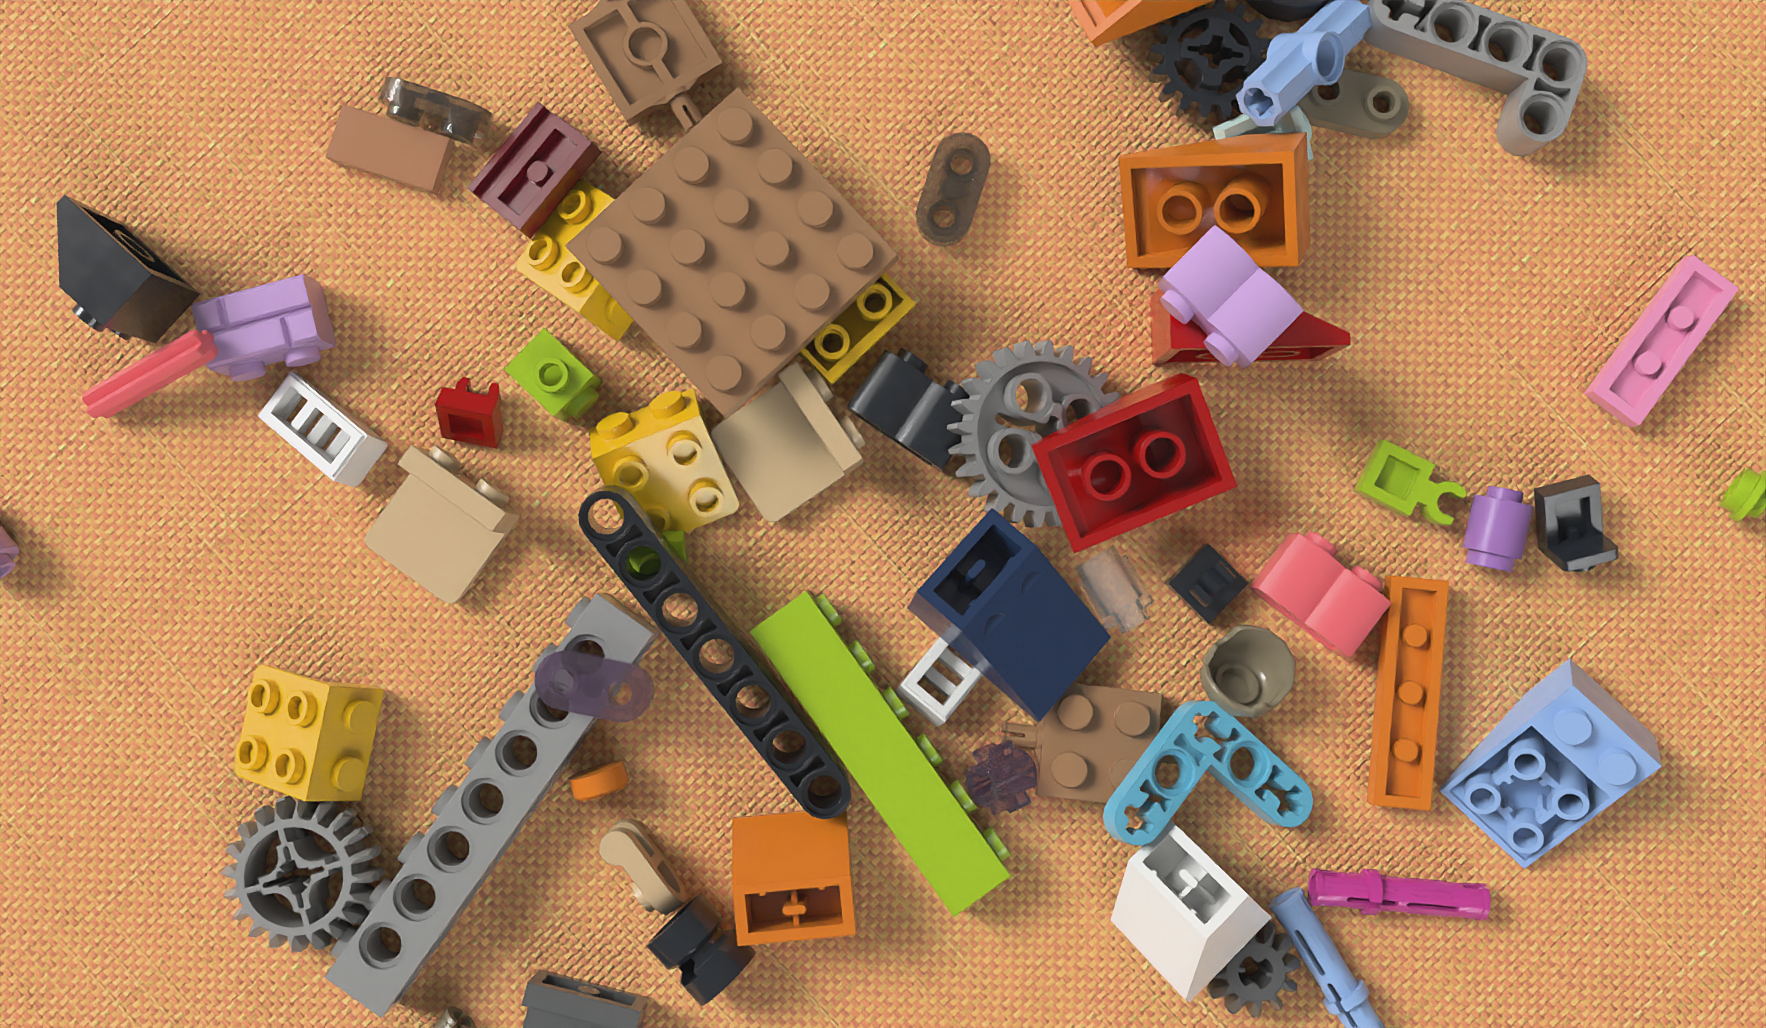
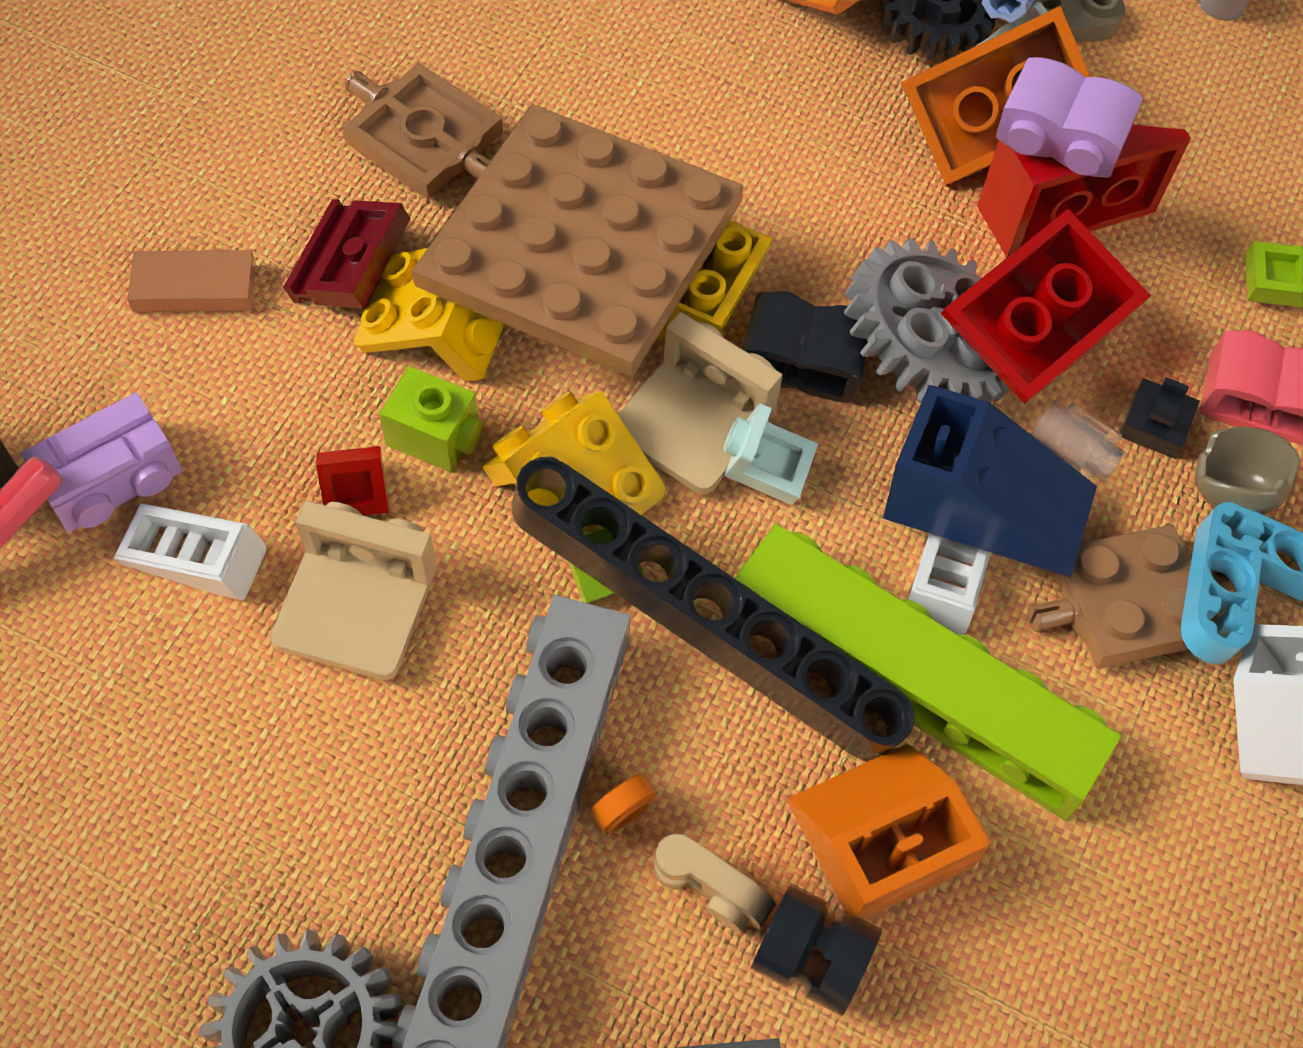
camera: 30 degrees left, 25 degrees down
(307, 735) = (260, 867): yellow bracket -> none
(457, 117) = (231, 226): clear smoke plate -> none
(593, 685) = (590, 686): plate -> none
(834, 513) = (768, 456): none -> light aqua bracket
(953, 191) = (761, 168): clear smoke plate -> none
(1001, 777) = (1073, 645): gear -> none

